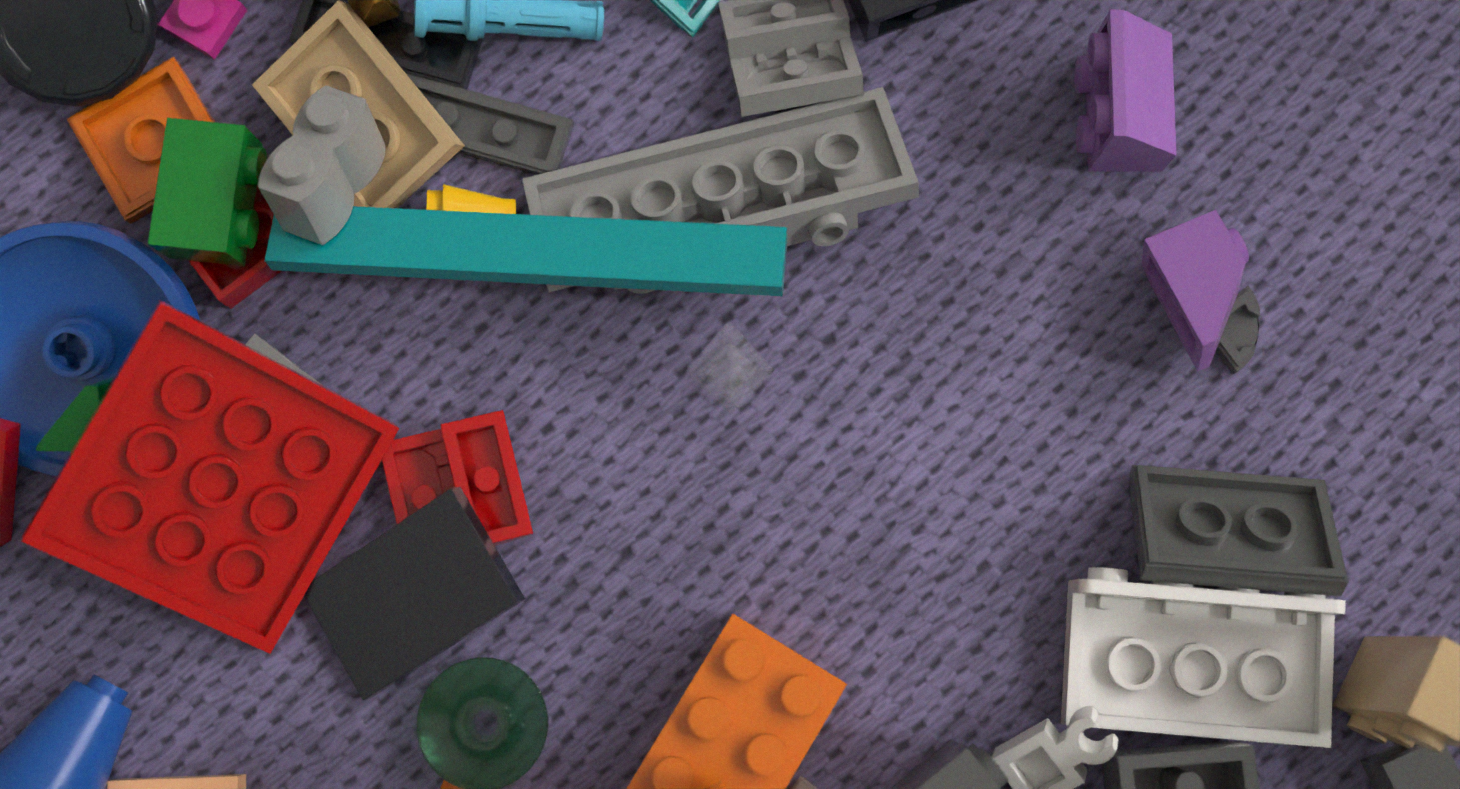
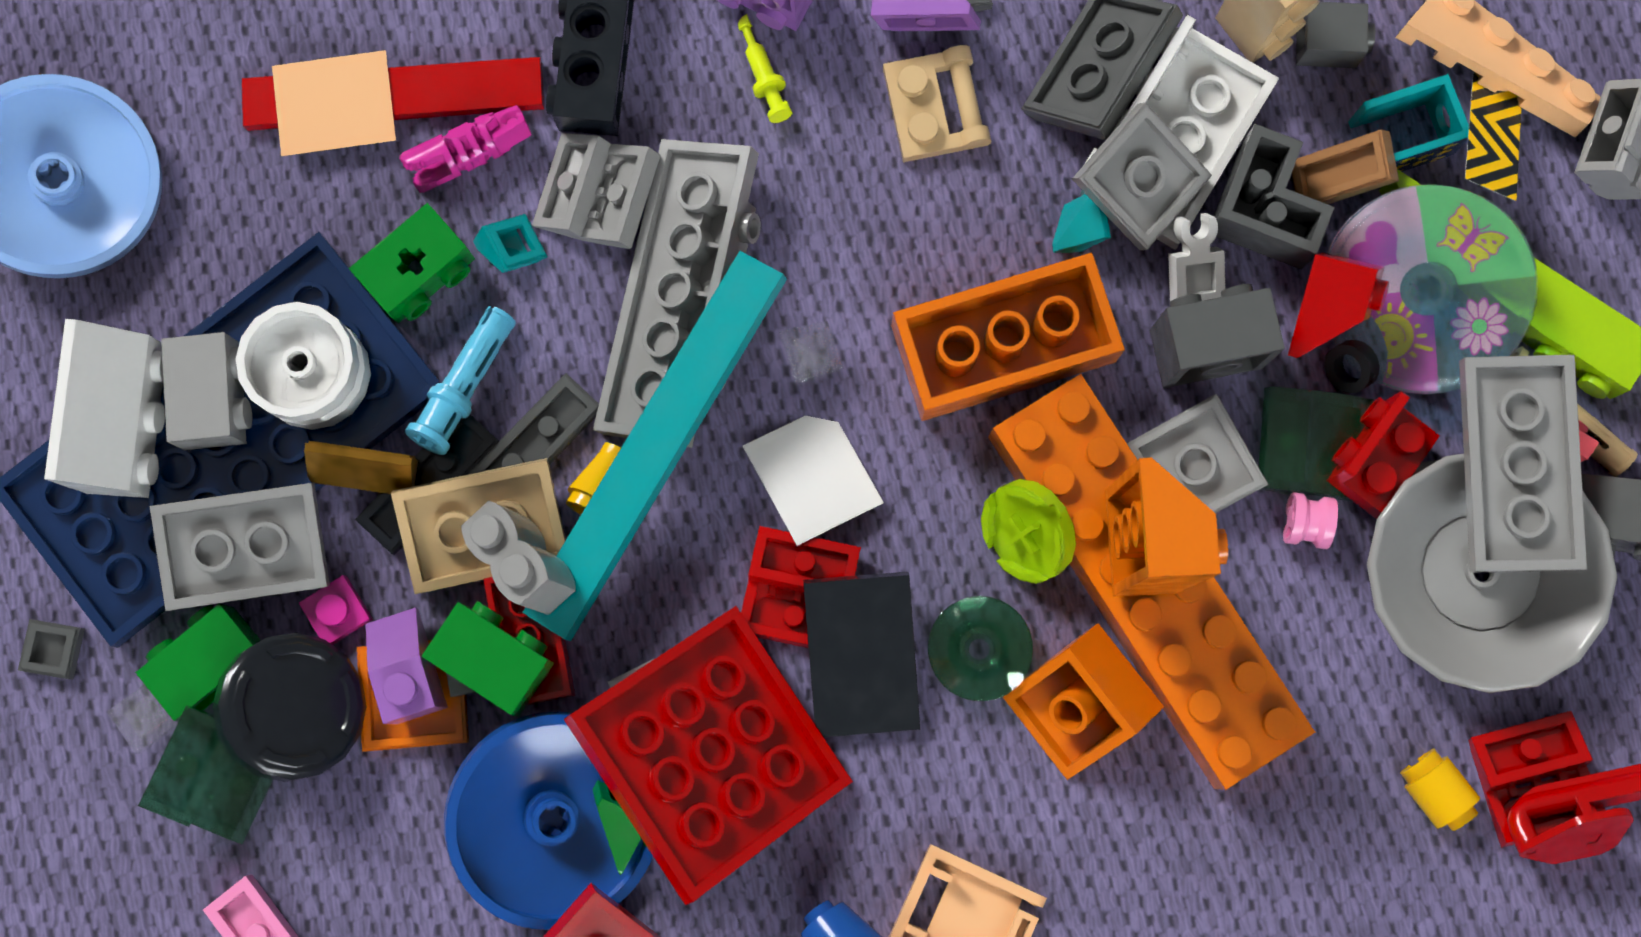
camera: 65 degrees left, 0 degrees up
(137, 107) = (400, 678): none -> medium lavender slope
(589, 441) = (812, 476): none -> white sticker
(638, 714) = (1028, 531): none -> lime tile
(852, 578) = (1007, 336): none -> orange brick
(1009, 169) = (767, 82): none -> neon yellow piece
(1032, 600) = (1080, 226): none -> teal slope
(1071, 350) = (920, 109): none -> tan plate
(1119, 642) = (1142, 176): none -> light grey tile

